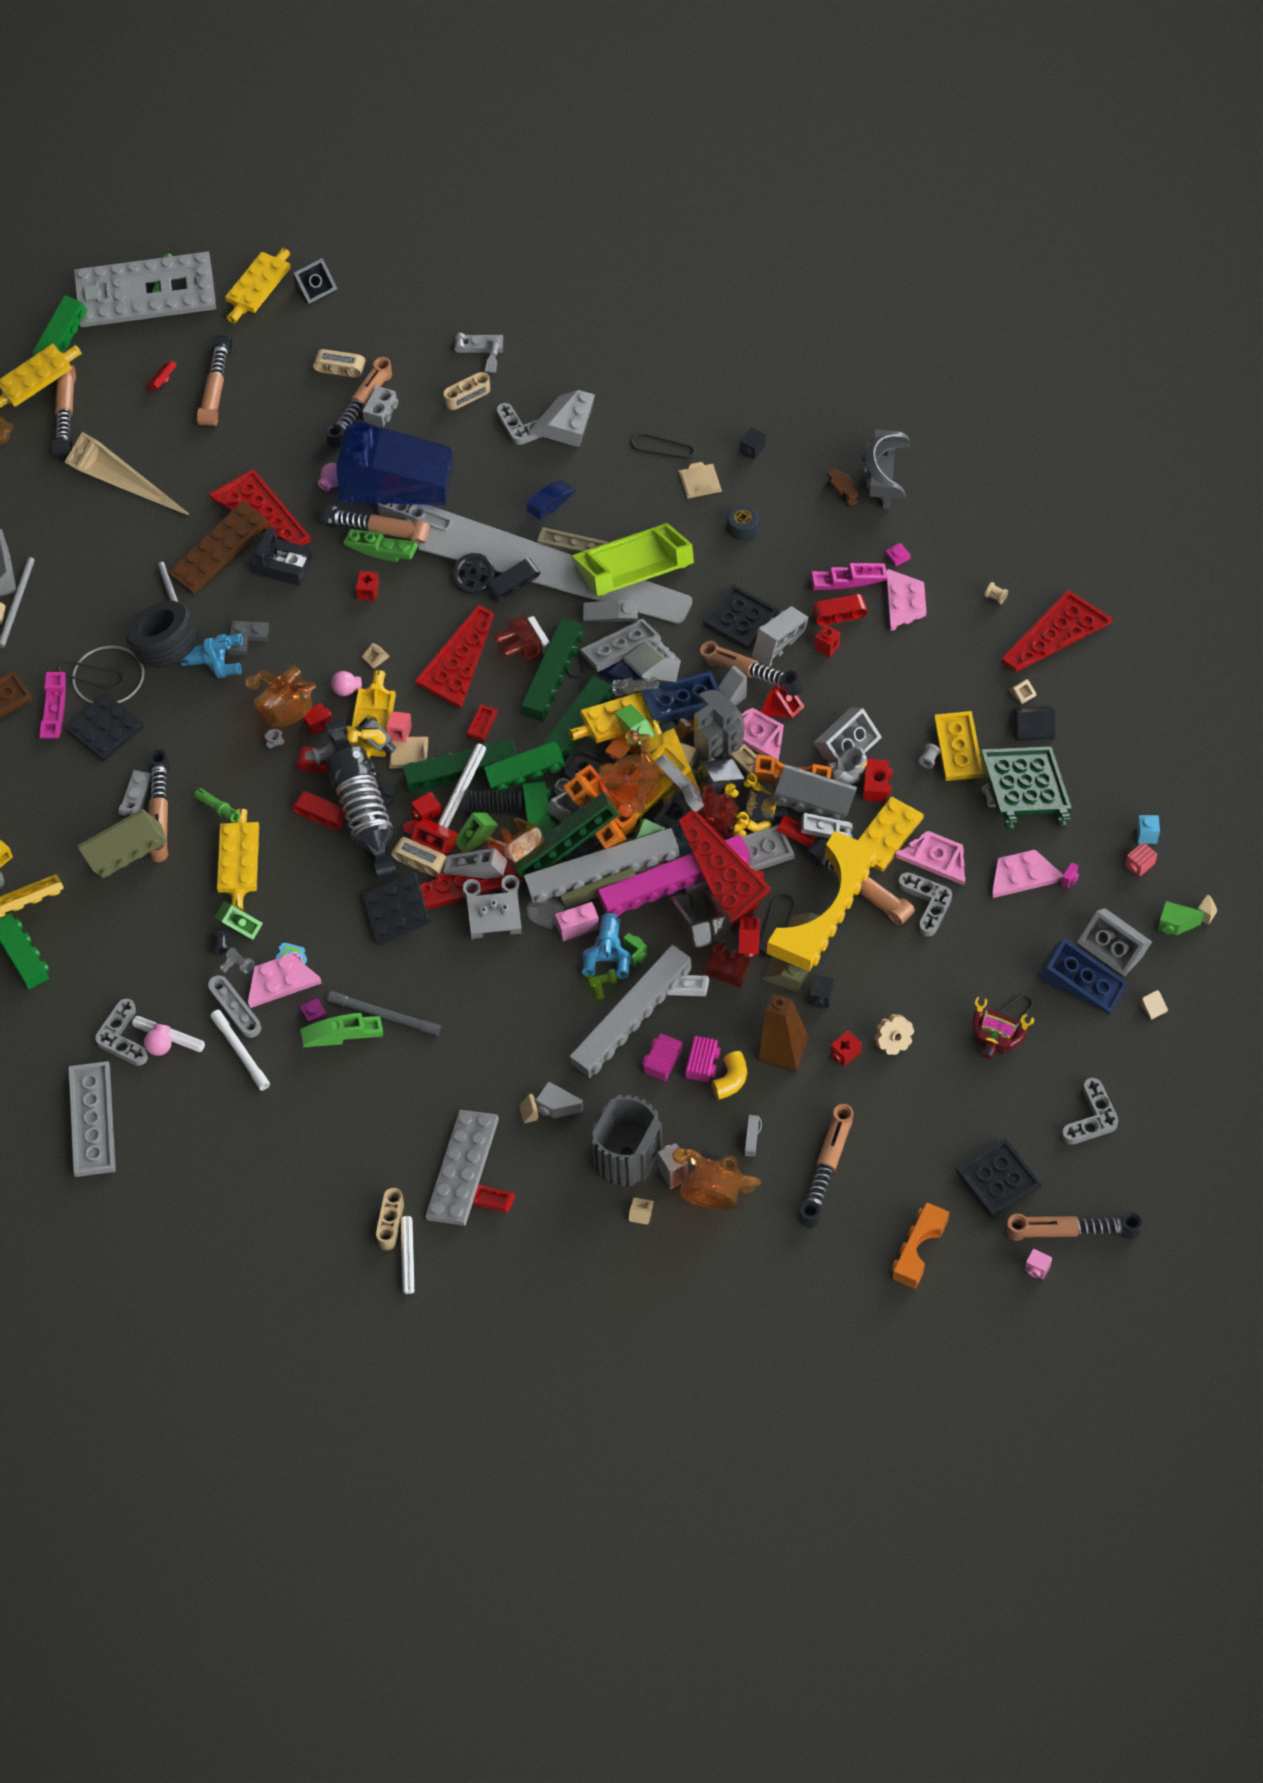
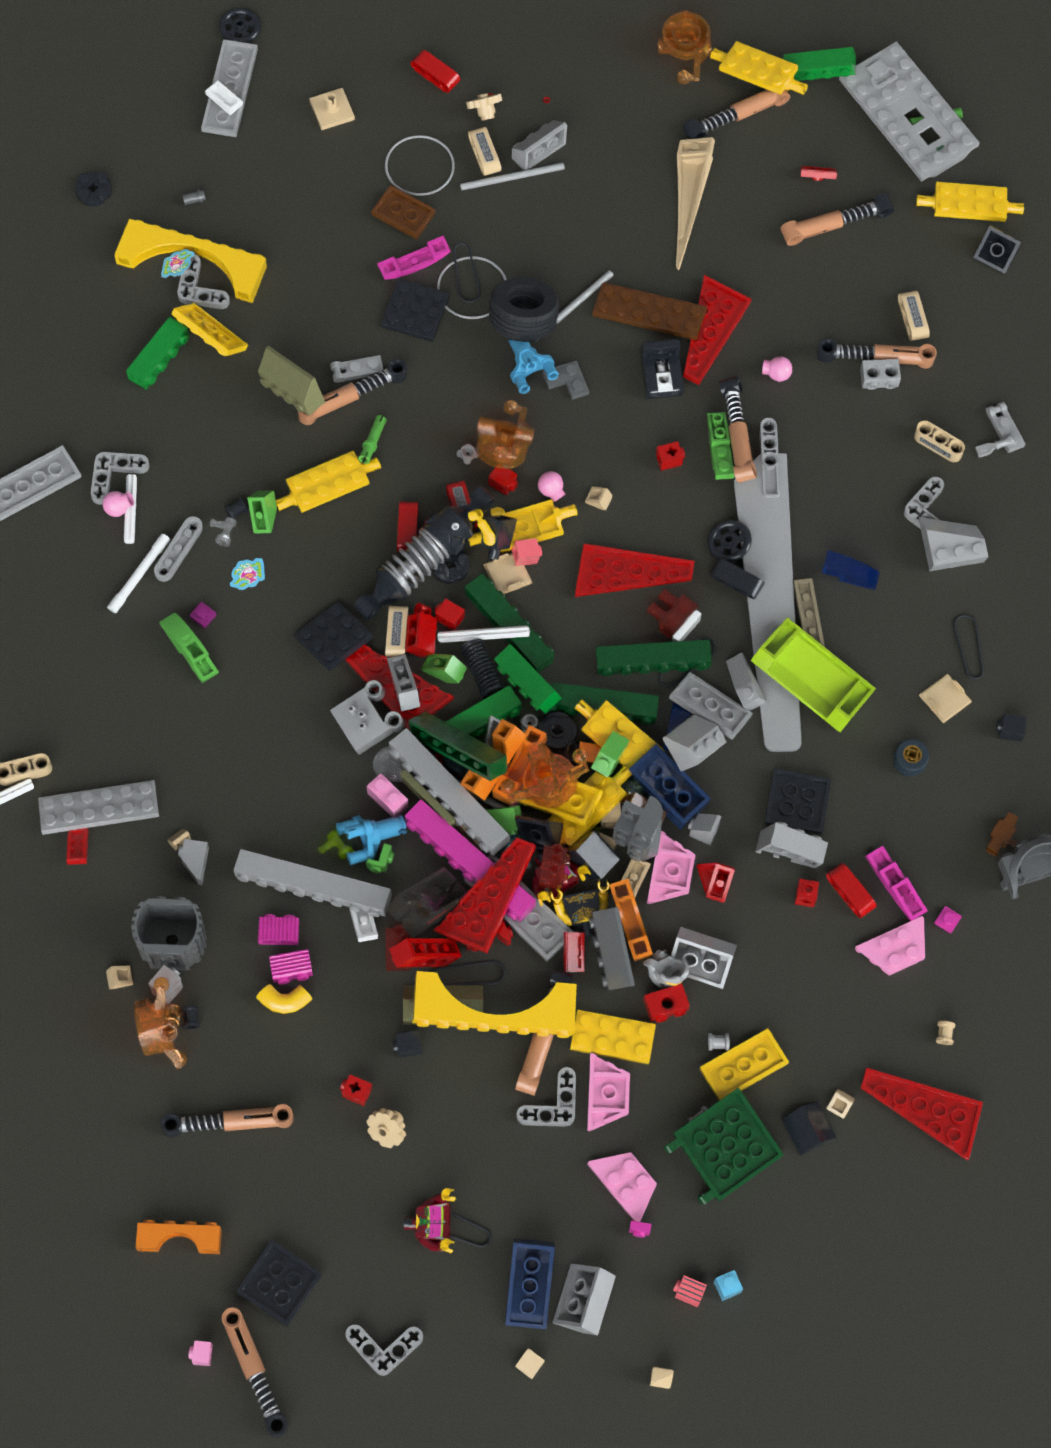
camera: 60 degrees right, 10 degrees up
(280, 979) = (222, 573): bright pink wing -> none
(316, 752) = (458, 499): light grey bush -> none
(392, 467) = (804, 416): clear blue slope -> none
(422, 1025) = (226, 712): dark grey piece -> none
(482, 723) = (566, 621): red plate -> none
(521, 843) = (433, 713): clear orange window -> none
(629, 686) = (657, 732): clear pin -> none
(690, 792) = (563, 827): light grey beam -> none
(726, 659) = (731, 833): piece -> none
(752, 1133) = (237, 1040): light grey piece -> none
(783, 1035) = (337, 1028): reddish brown slope -> none
(824, 826) = (588, 977): light grey plate -> none
(1179, 918) = (636, 1351): bright green slope -> none

